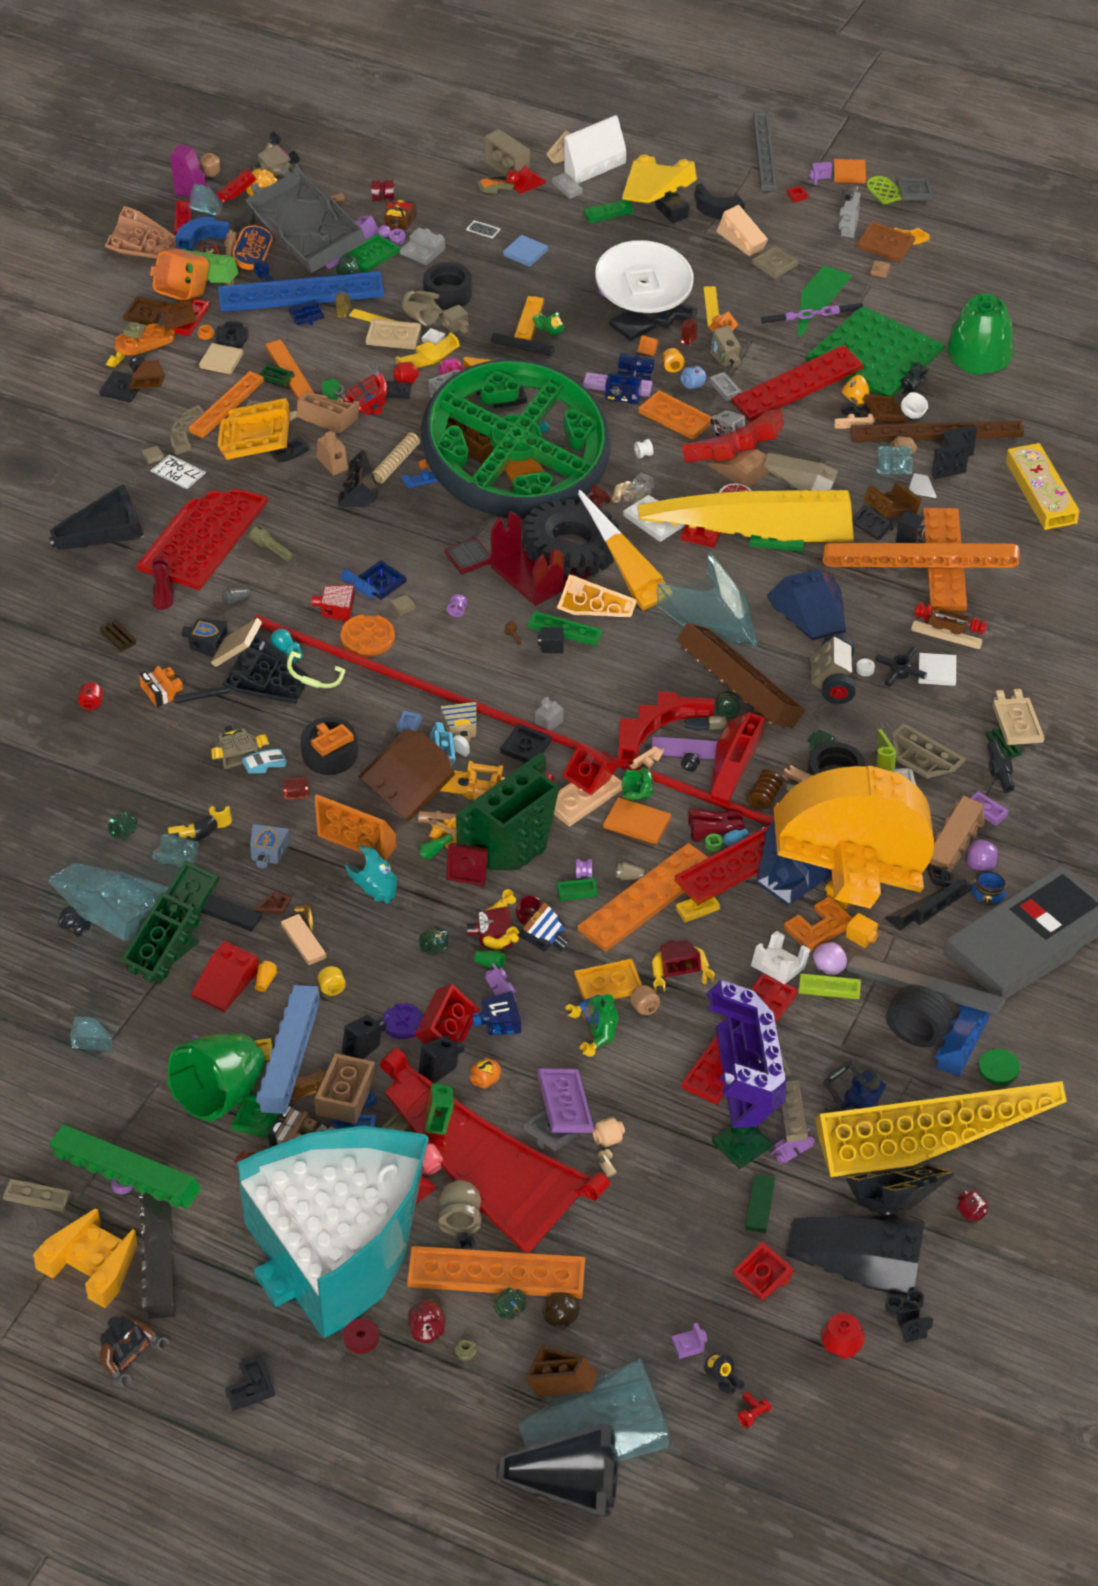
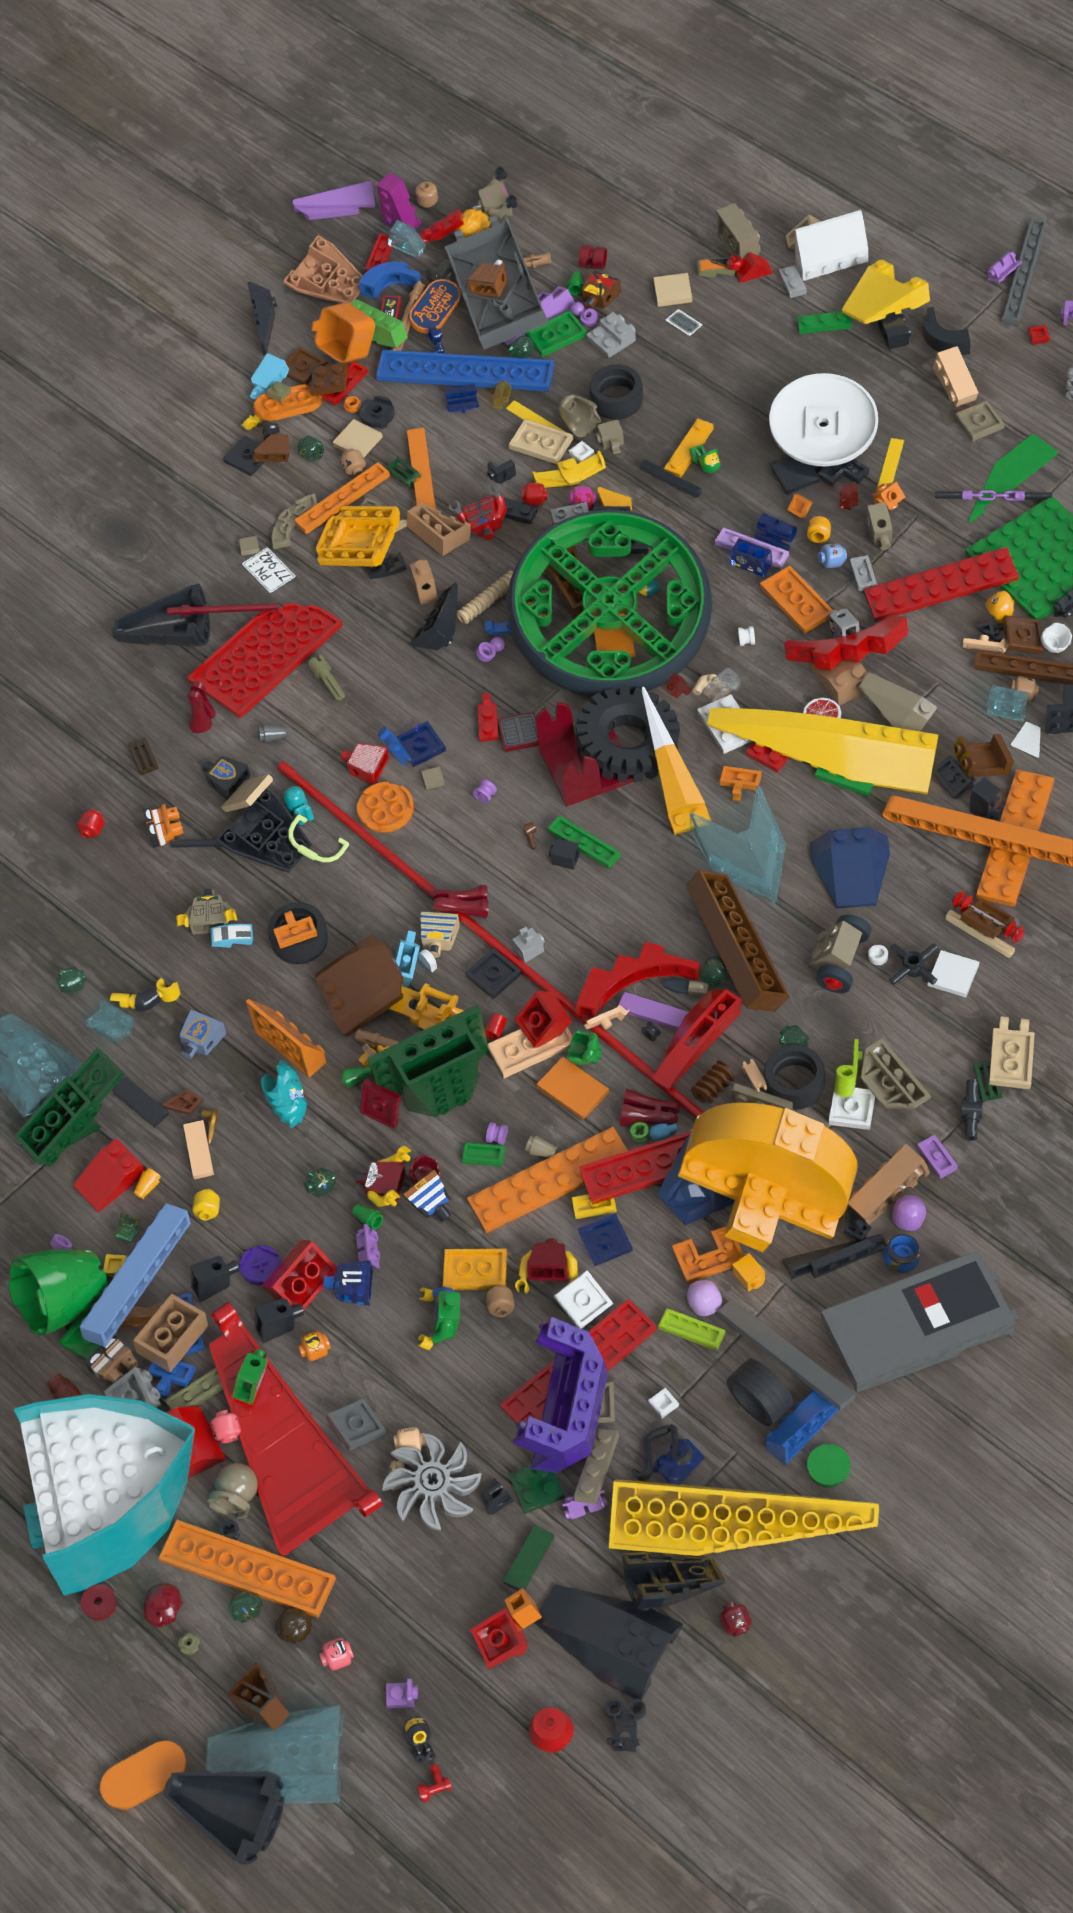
camera: 25 degrees right, 10 degrees up
(90, 272) = (264, 312): none -> black wedge
(117, 319) = (268, 372): none -> medium azure hinge
(118, 509) = (186, 610): none -> dark red bar
(127, 182) = (336, 202): none -> medium lavender wedge
(181, 370) = (310, 448): none -> clear green head
(225, 374) = (352, 462): none -> medium nougat head
(259, 1016) = (126, 1227): none -> clear green slope
(295, 788) = (250, 974): clear red piece -> none
(297, 217) = (488, 279): none -> dark orange torso
(328, 388) = (449, 498): green bracket -> none
(362, 363) = (501, 473): none -> black bracket
(375, 212) = (575, 283): none -> green cone
(408, 721) = (385, 923): medium blue plate -> none
(413, 498) = (496, 645): none -> medium lavender plate
(435, 551) = (488, 719): none -> red hinge
(463, 206) = (672, 289): none -> tan tile
(465, 1472) = (142, 1775): none -> orange tile
(481, 691) = (469, 902): none -> dark red piece
(525, 250) = (717, 358): medium blue tile -> none
(565, 1101) = (379, 1396): medium lavender tile -> none
(587, 598) = (621, 810): light orange wedge -> none
(614, 1322) = (336, 1654): none -> coral head
(644, 1159) = (431, 1493): none -> light grey piece
(685, 556) = (740, 779): none -> orange plate
(712, 1164) = (494, 1505): none -> black piece
(719, 971) = (583, 1300): none -> white tile
(720, 932) = (605, 1239): none -> clear blue plate
(746, 149) = (998, 272): none -> medium lavender hinge
(776, 1239) = (523, 1608): none -> orange brick
(778, 962) = (649, 1288): white panel -> none
(828, 1051) = (663, 1403): none -> white tile

